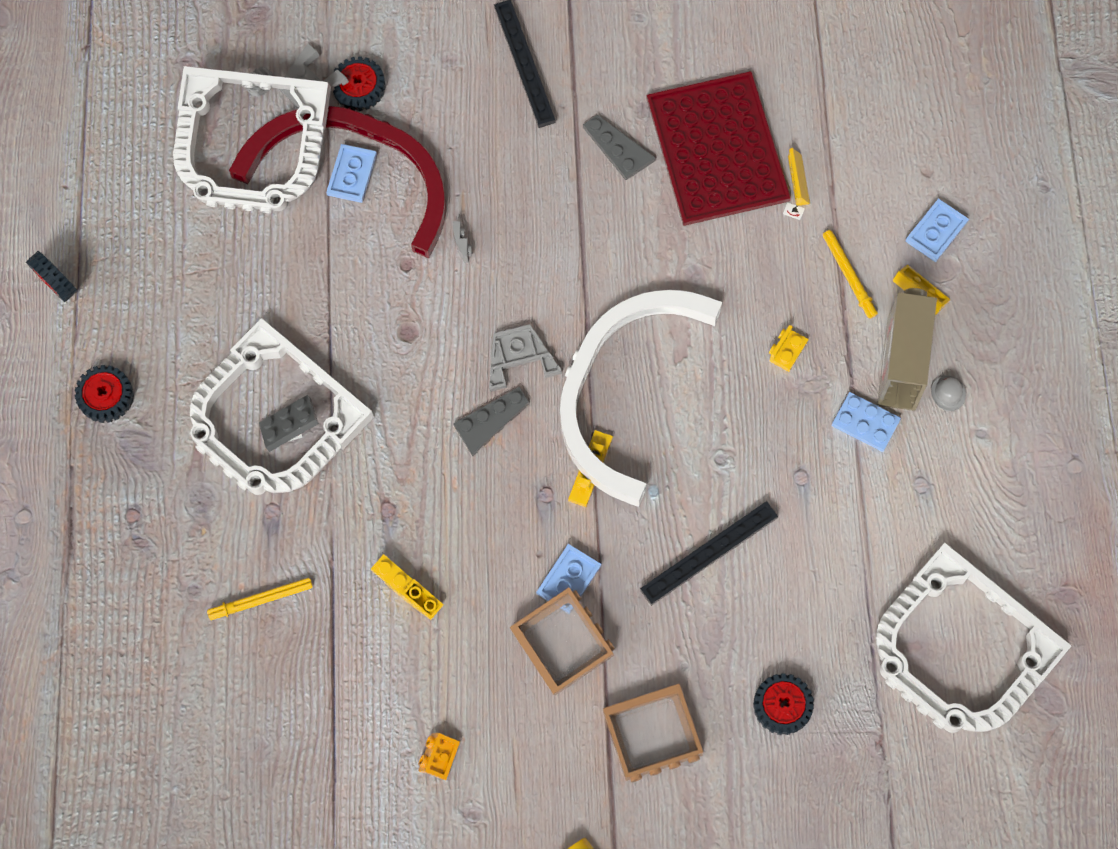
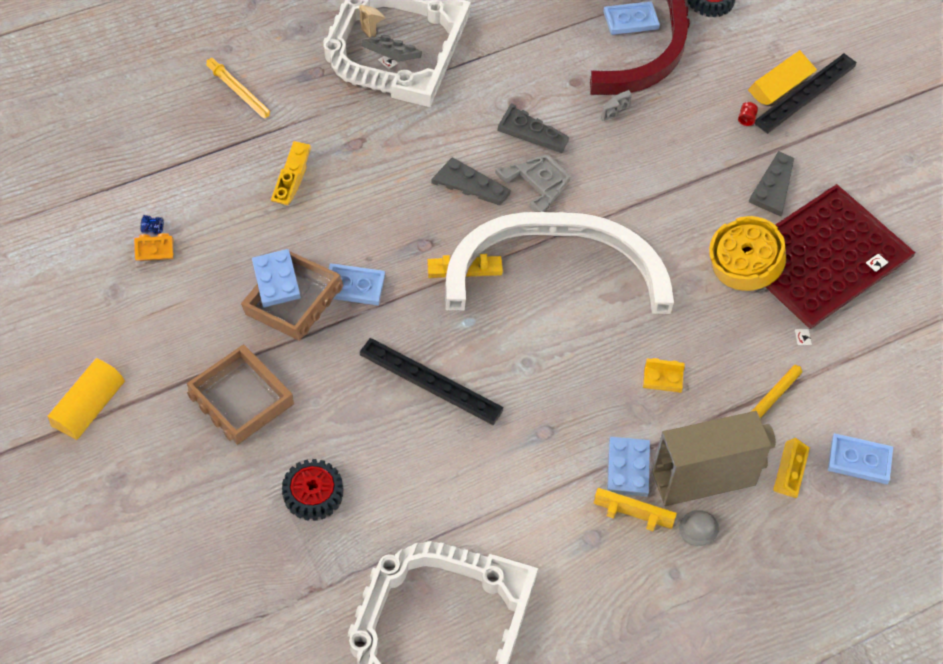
camera: 60 degrees right, 15 degrees down
(236, 427) = (369, 18): none -> tan slope
(409, 748) = (152, 225): none -> clear blue wheel
(445, 339) = (524, 127): none -> dark grey wing
(499, 75) = (782, 78): none -> yellow brick
(527, 128) = (748, 114): none -> red wheel
(542, 649) = (276, 278): none -> light blue plate
(698, 231) = (749, 269): none -> yellow brick
(748, 108) = (876, 262): none -> white sticker
(798, 177) = (837, 326): yellow slope -> none
(902, 450) = (634, 508): none -> yellow hinge

